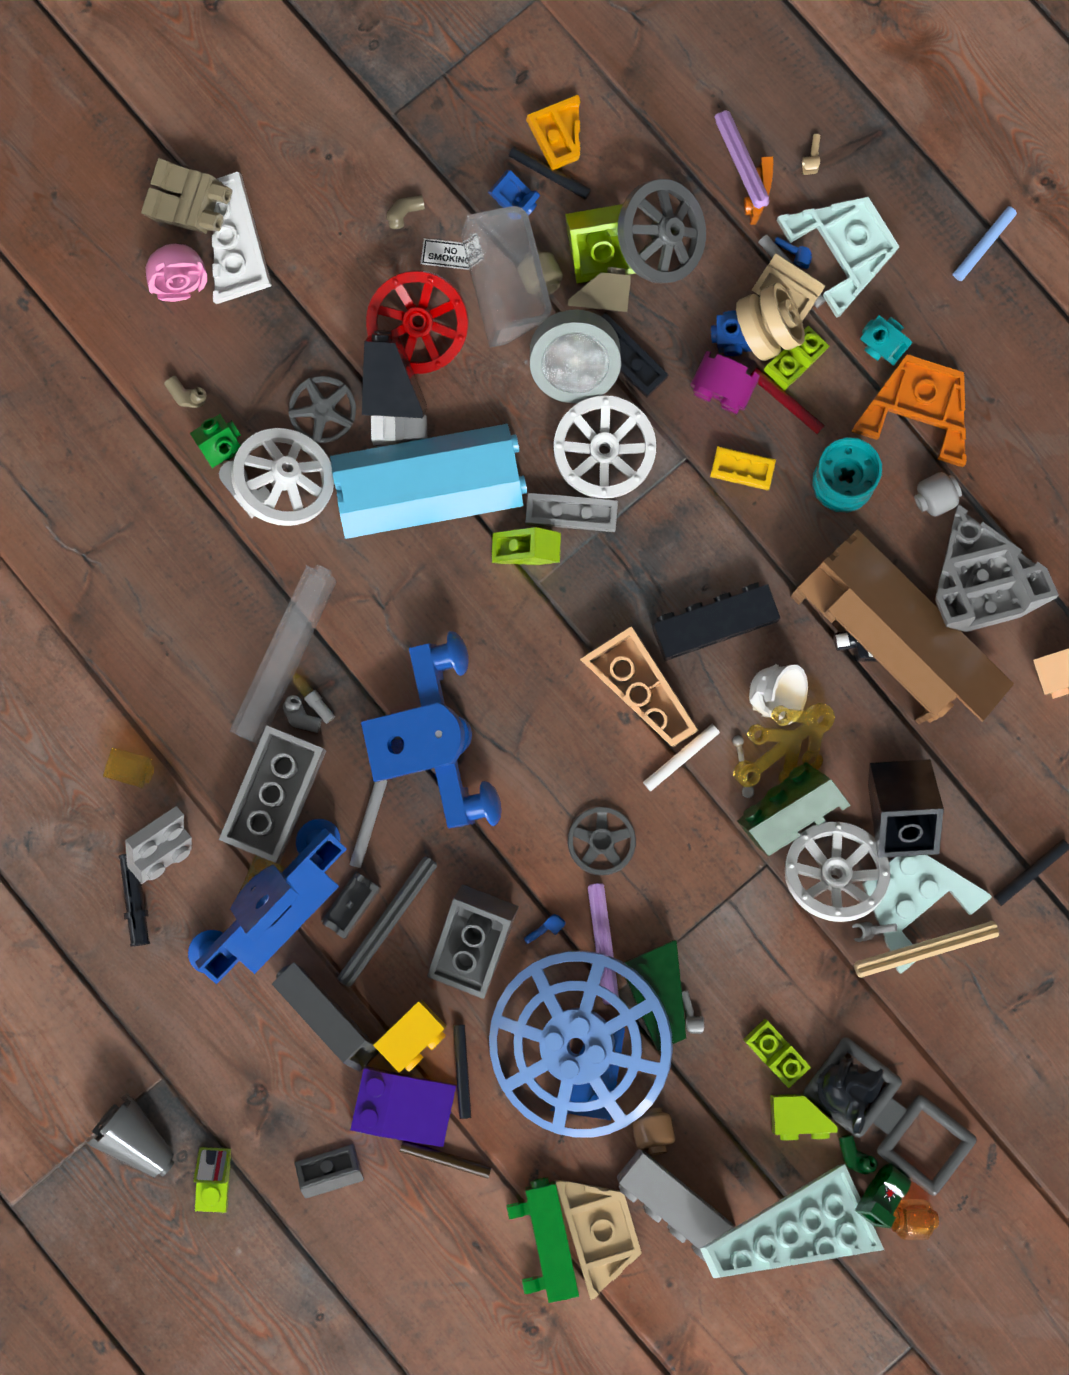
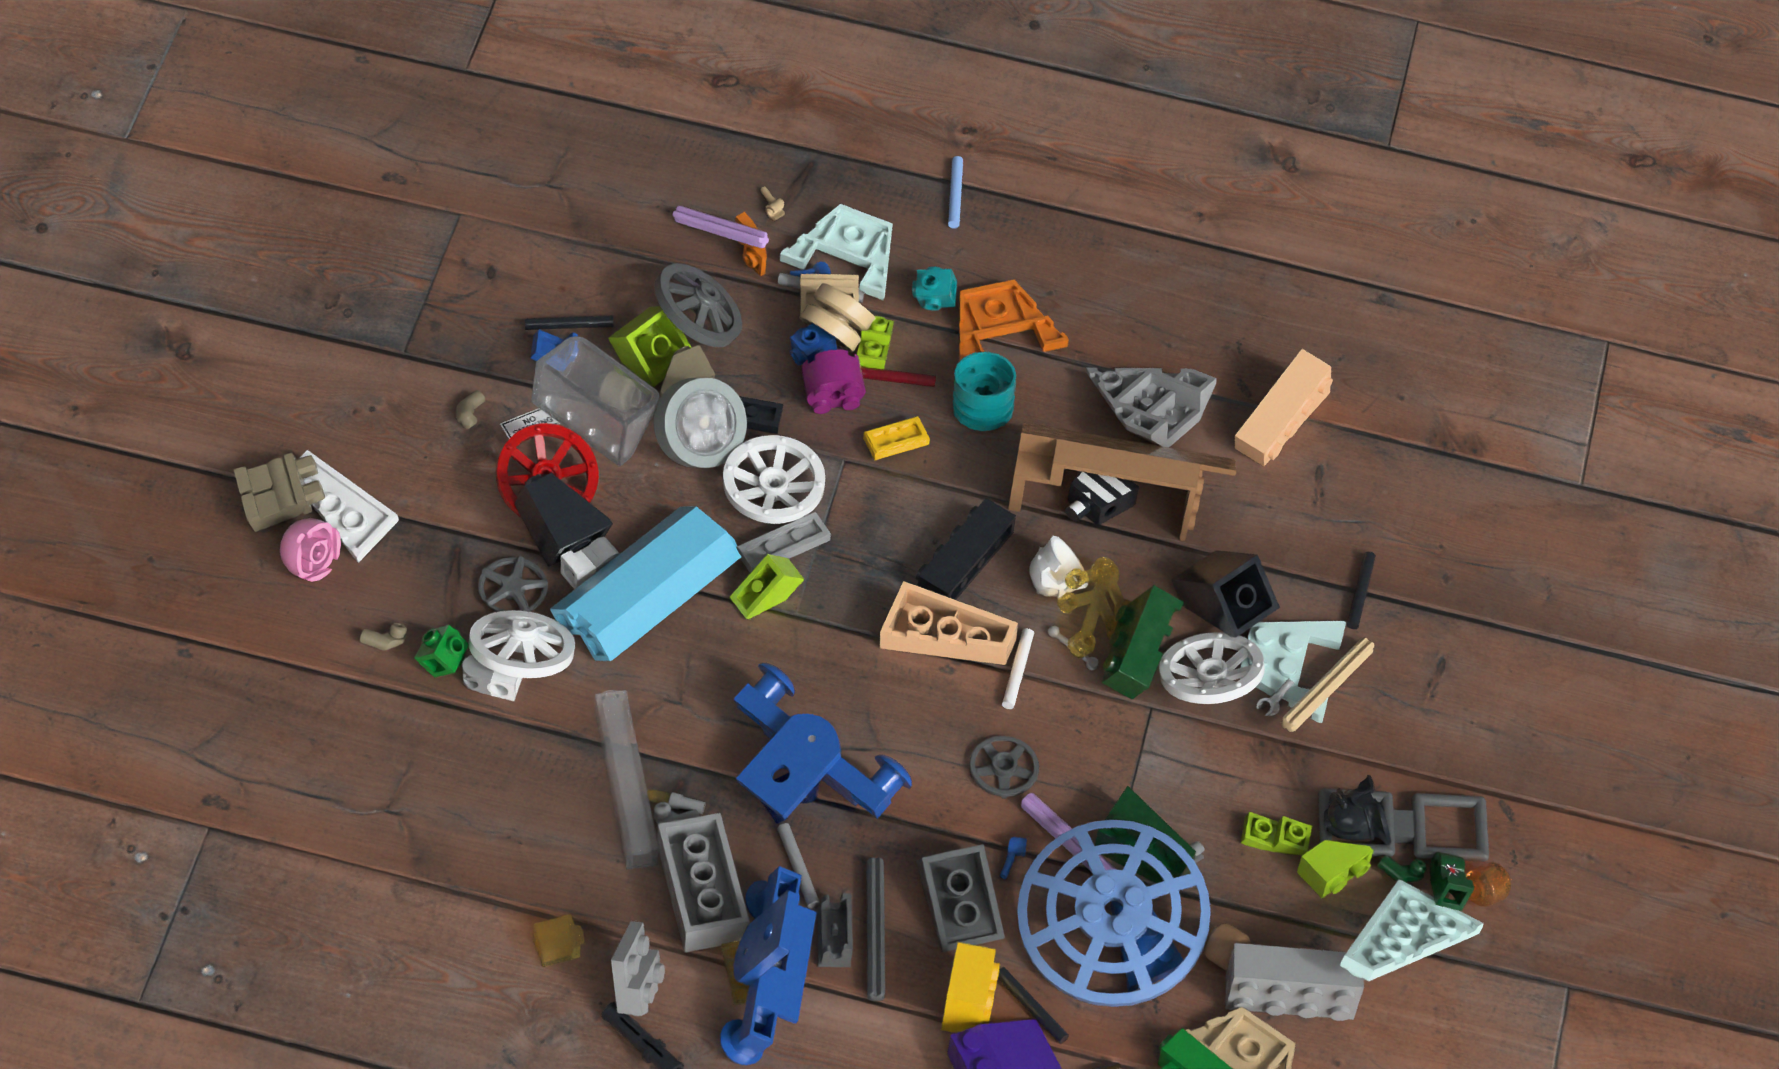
camera: 40 degrees left, 30 degrees down
(325, 1017) = (886, 1024): dark grey slope -> none
(558, 131) = (554, 289): light orange wing -> none
(938, 494) = (1064, 369): light grey head -> none

